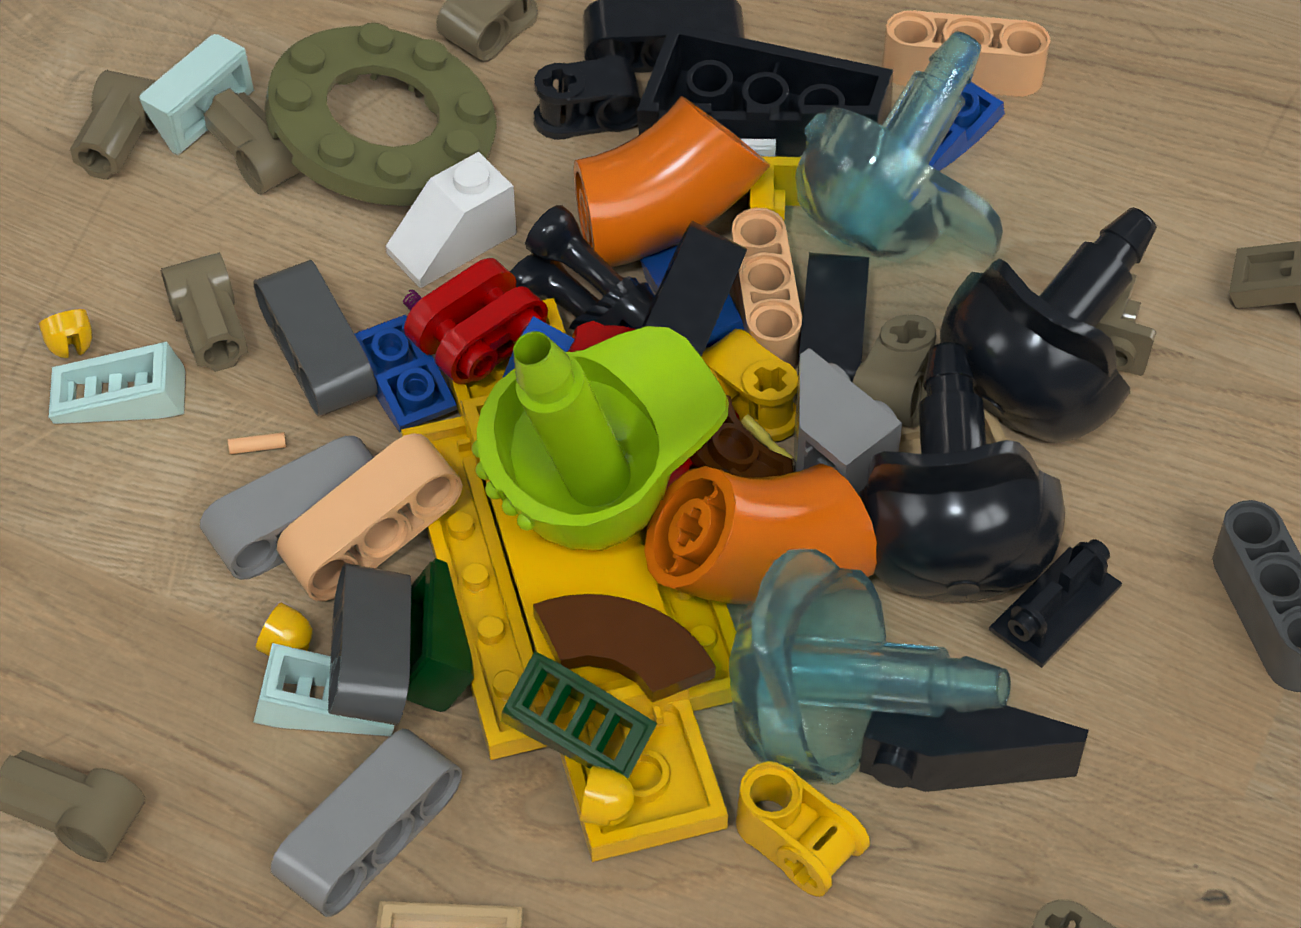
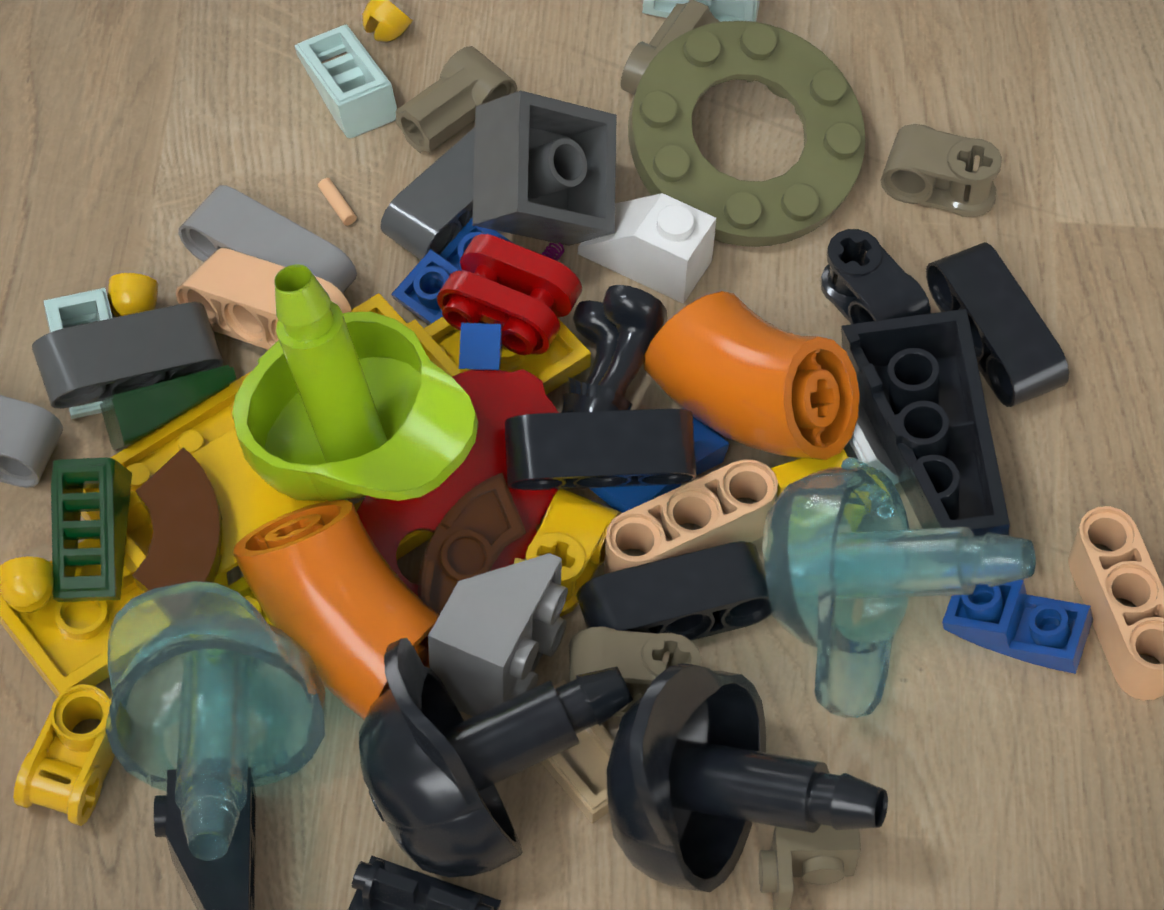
camera: 65 degrees right, 5 degrees up
(358, 246) = (544, 169): none -> dark grey brick

